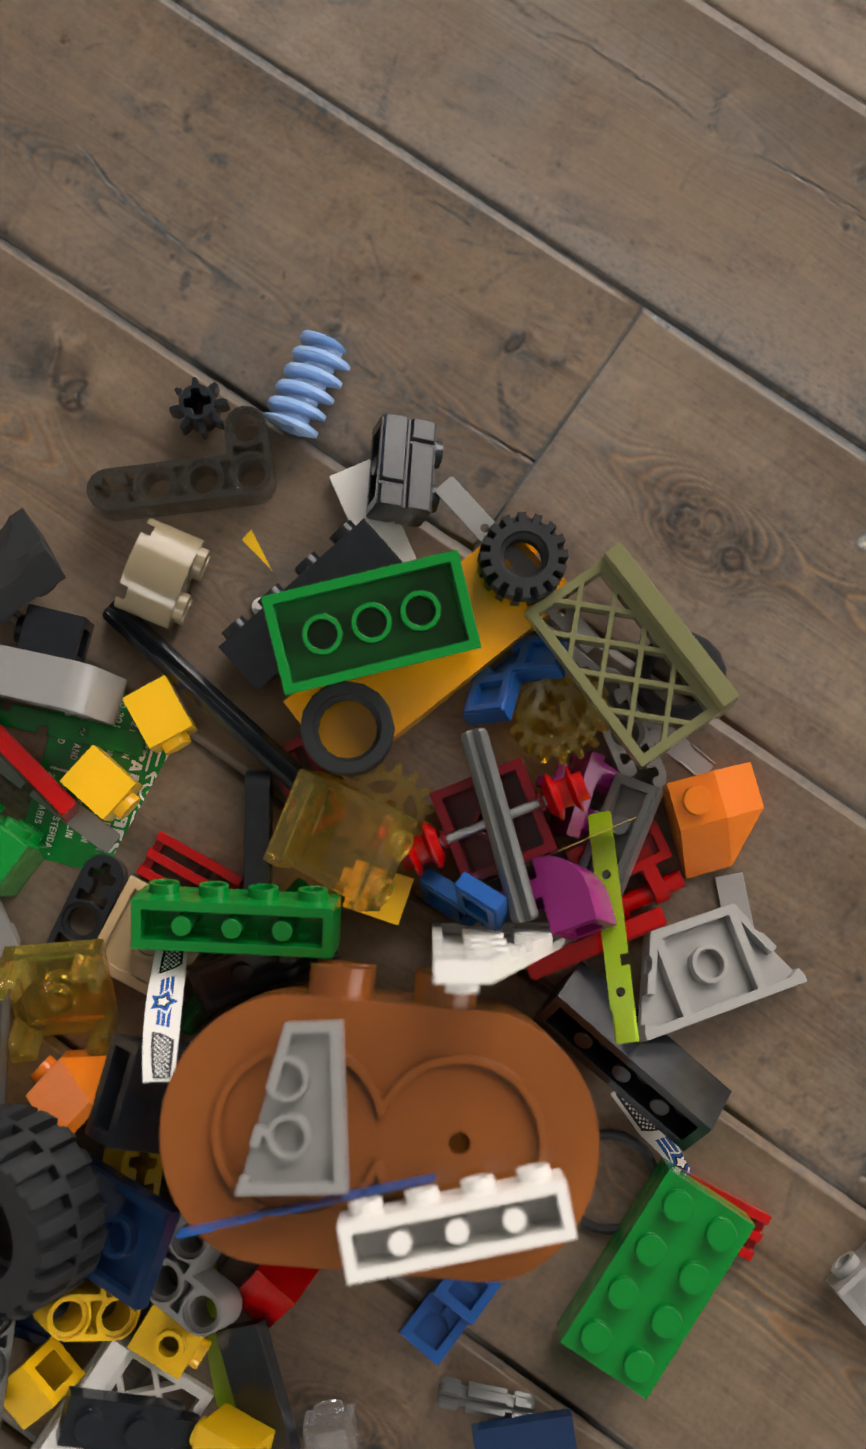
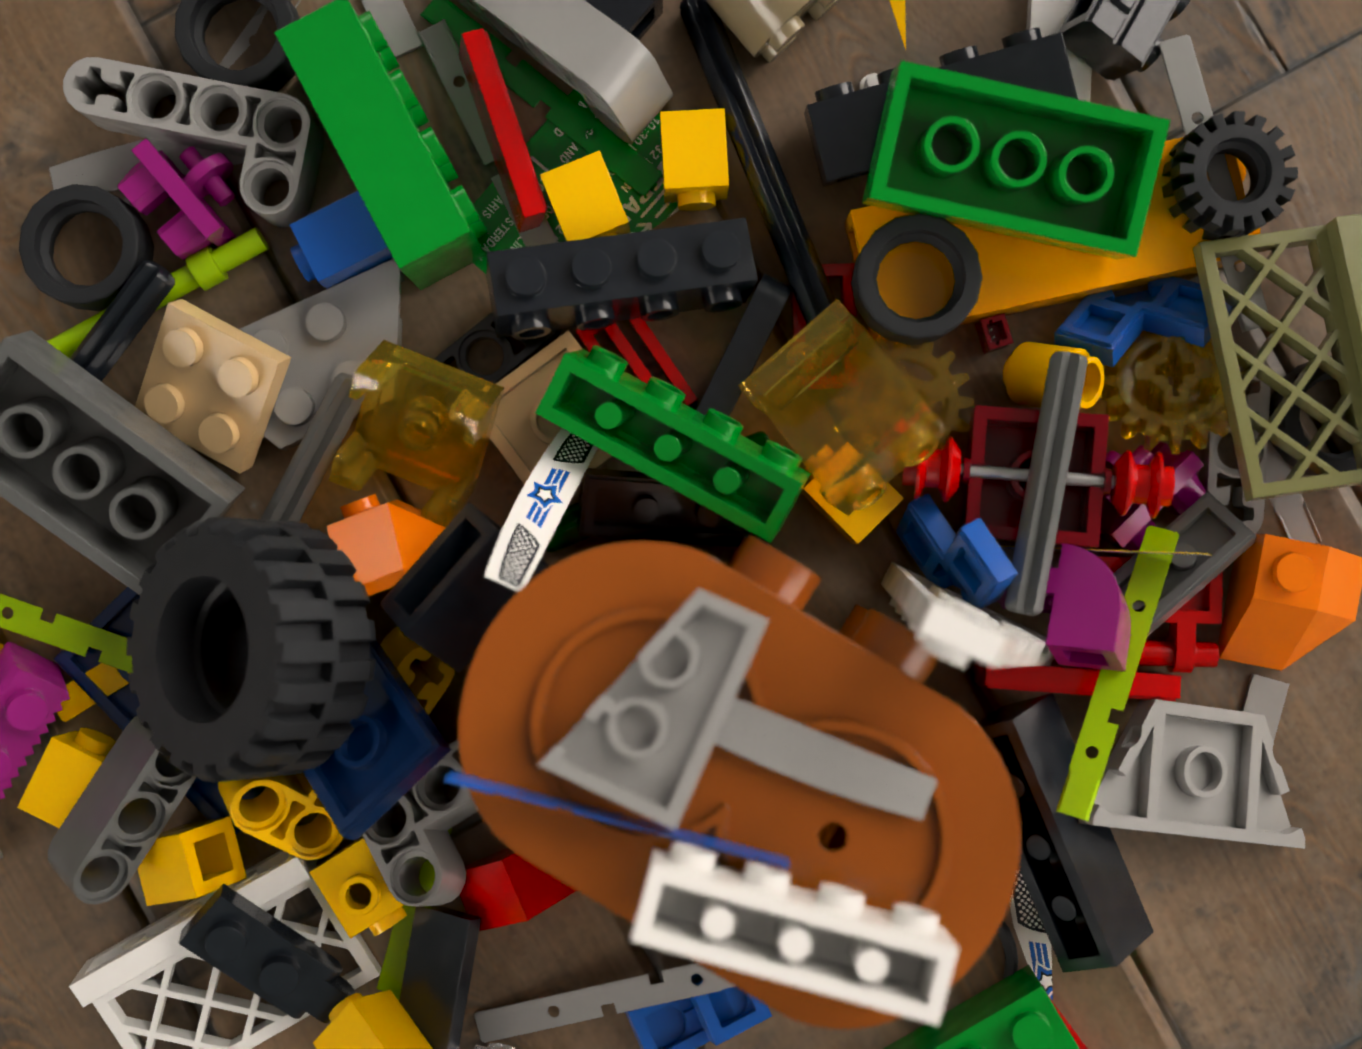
camera: 35 degrees right, 5 degrees up
(147, 825) = (620, 278): none -> black brick
(368, 1340) = (586, 1002): none -> light grey piece
(424, 733) = (994, 333): none -> dark red piece
(426, 1095) = (824, 761): none -> light grey sticker
(452, 747) = (1027, 372): none -> yellow brick

